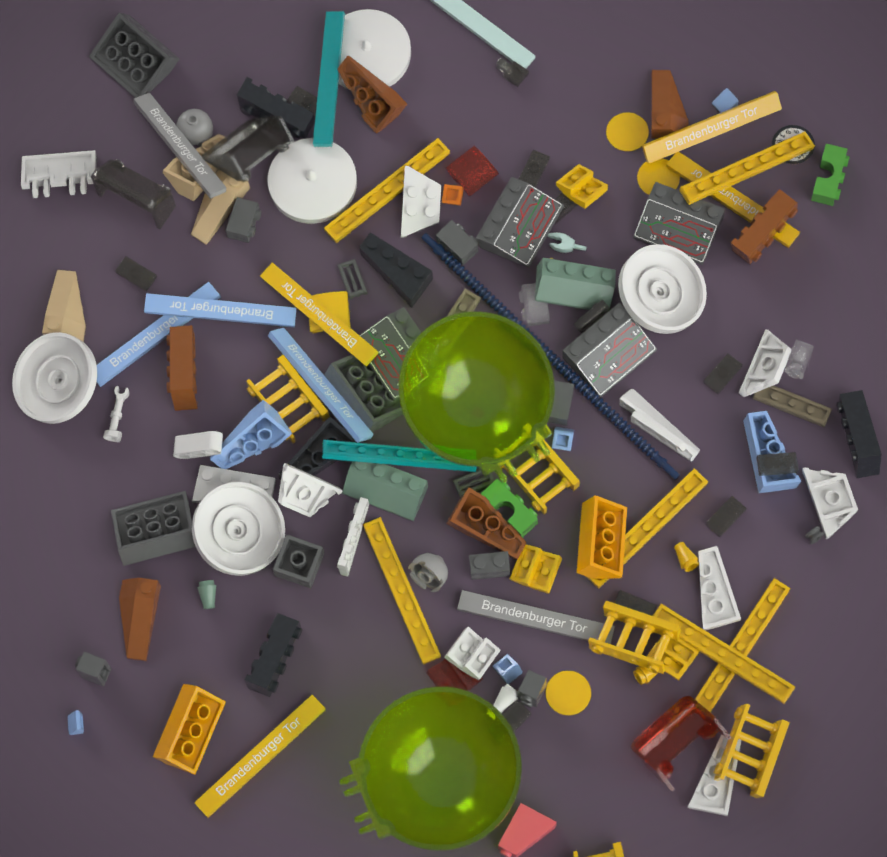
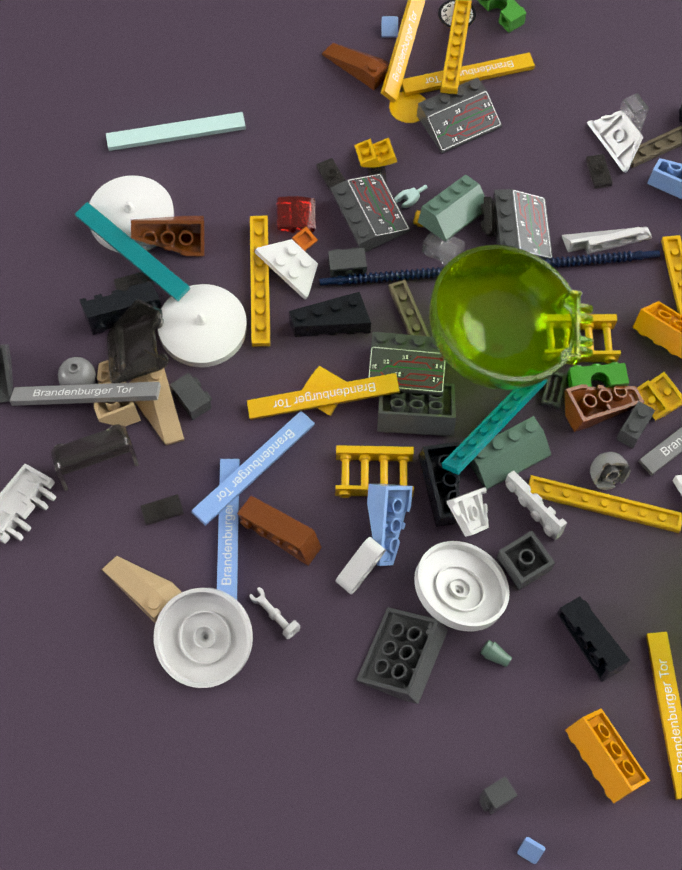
camera: 60 degrees left, 5 degrees down
(138, 610) = (467, 721): dark orange wedge -> none
(212, 477) = (399, 577): white wing -> none
(320, 385) = (385, 437): light blue tile -> none
(357, 293) = (309, 358): dark grey tile -> none
(513, 72) = (243, 133): clear smoke plate -> none
(627, 131) = (355, 100): yellow sticker -> none
(662, 289) = (506, 157): white container -> none
(764, 227) = (512, 66): dark orange wedge -> none

